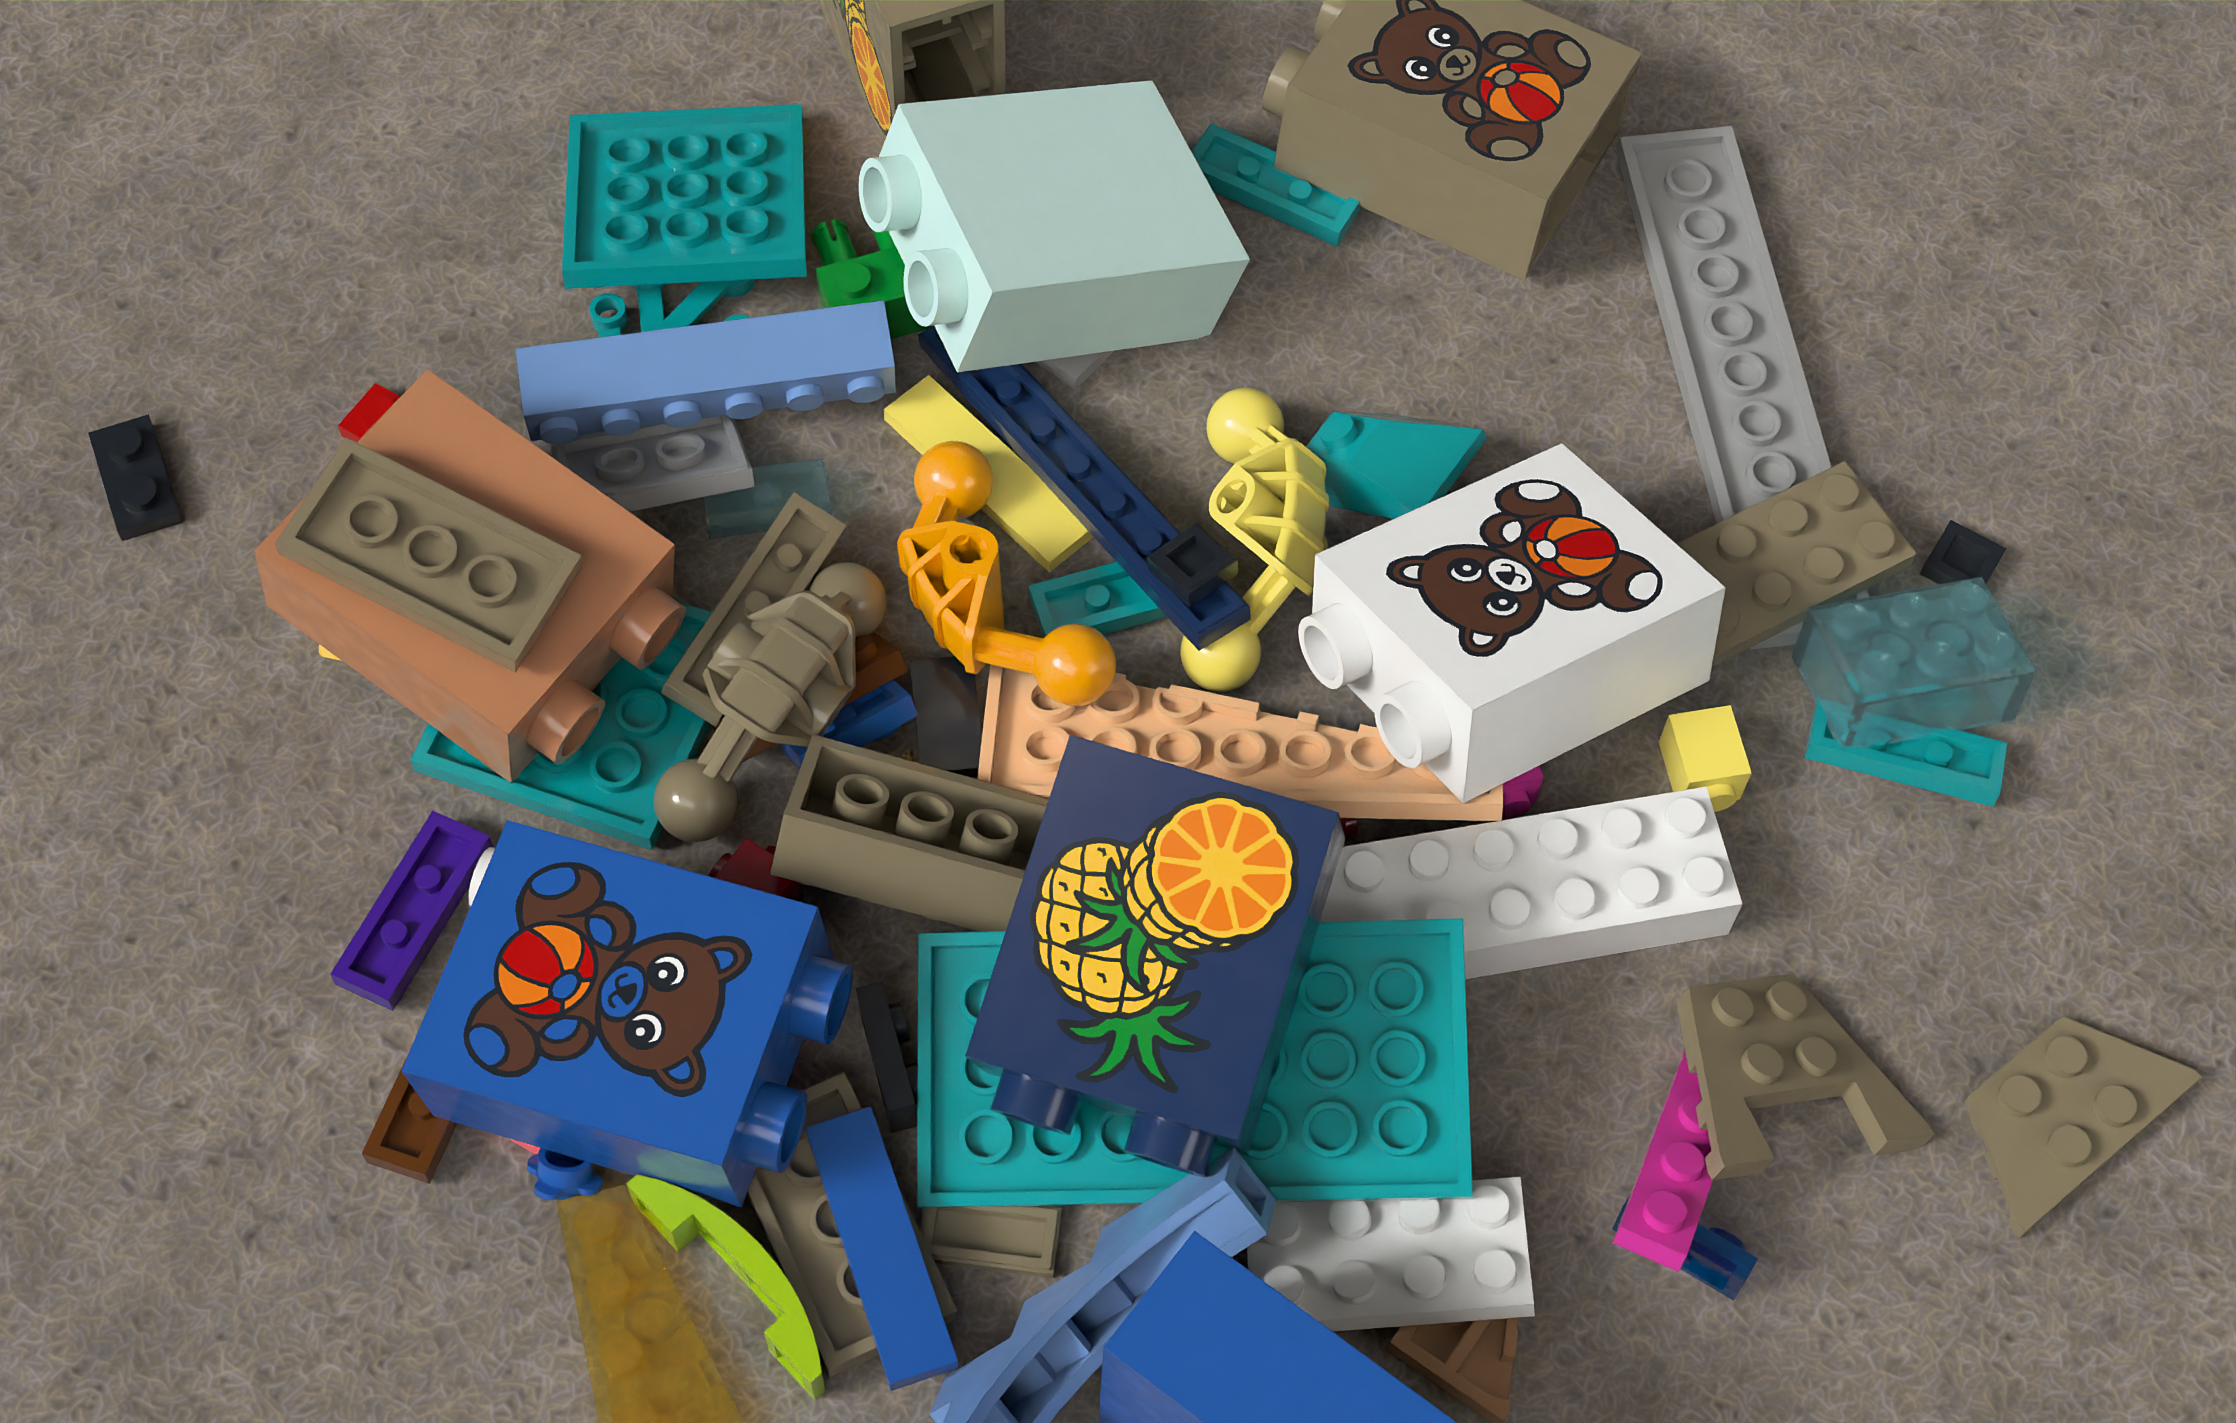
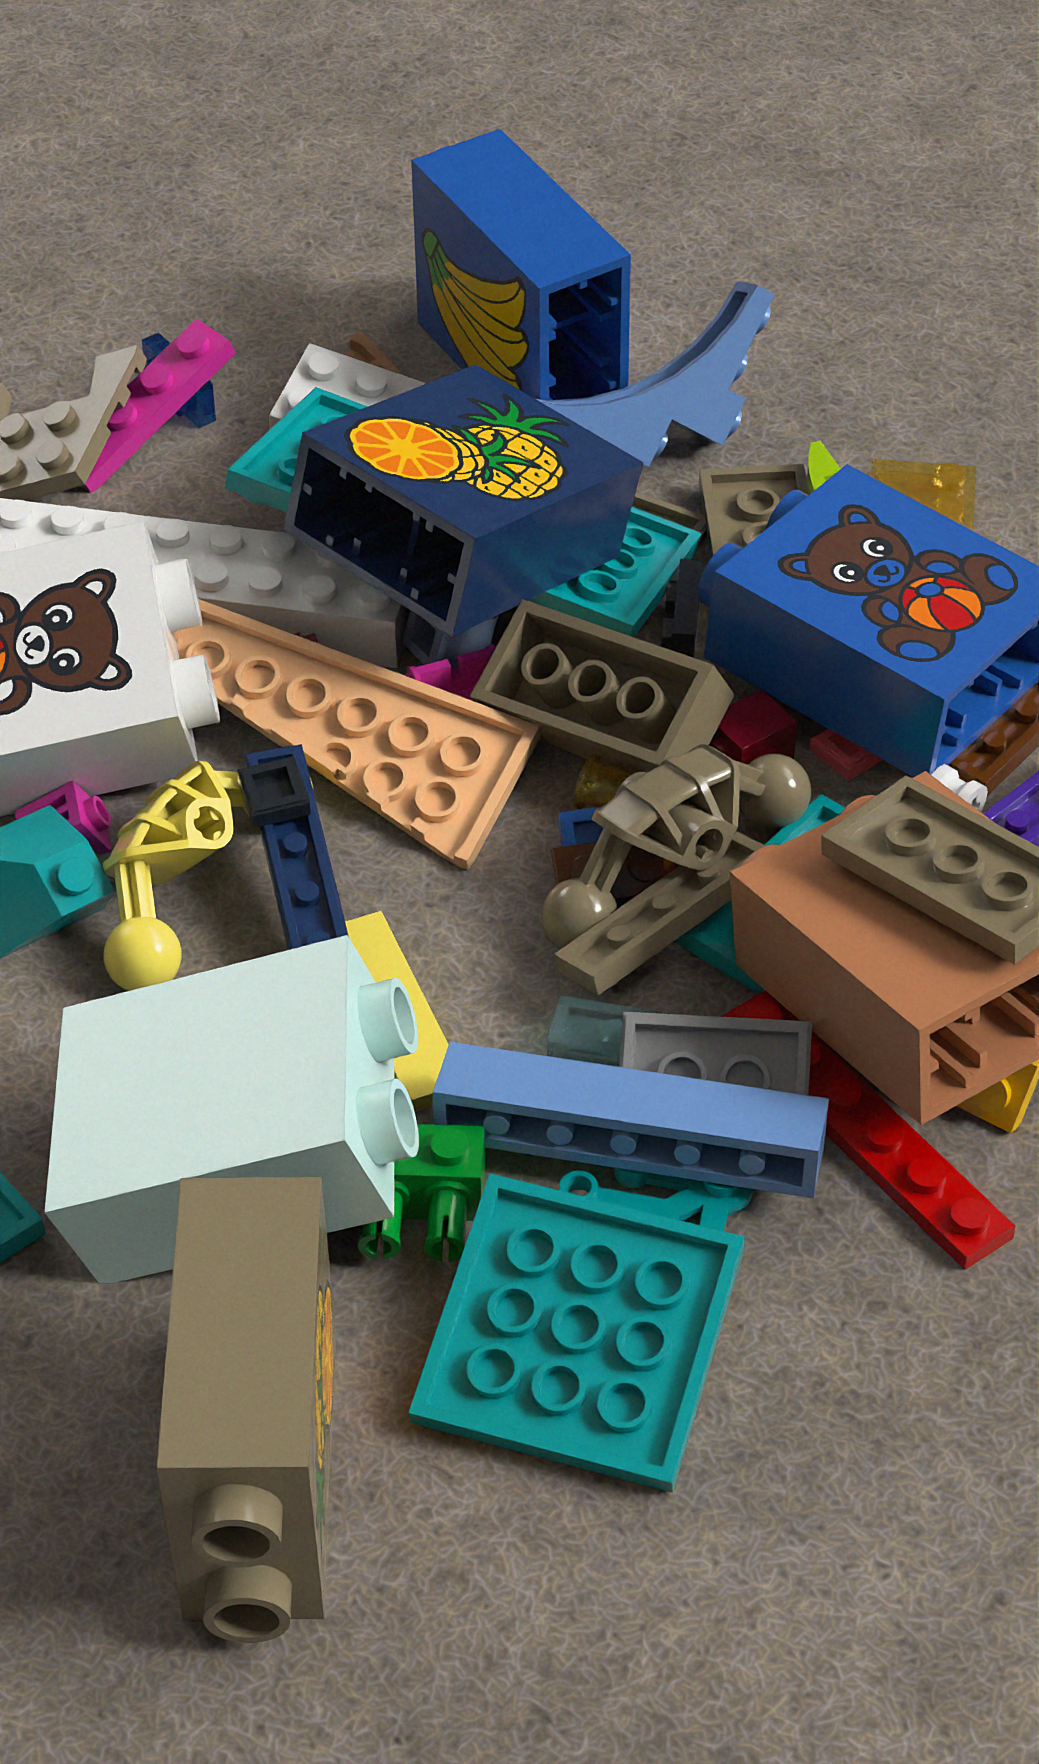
camera: 155 degrees left, 15 degrees down
(881, 1249) = (739, 484): blue tile -> none
(947, 715) = (528, 832): black tile -> none
(959, 587) = (475, 871): light orange piece -> none
(1094, 597) = (374, 869): teal plate -> none

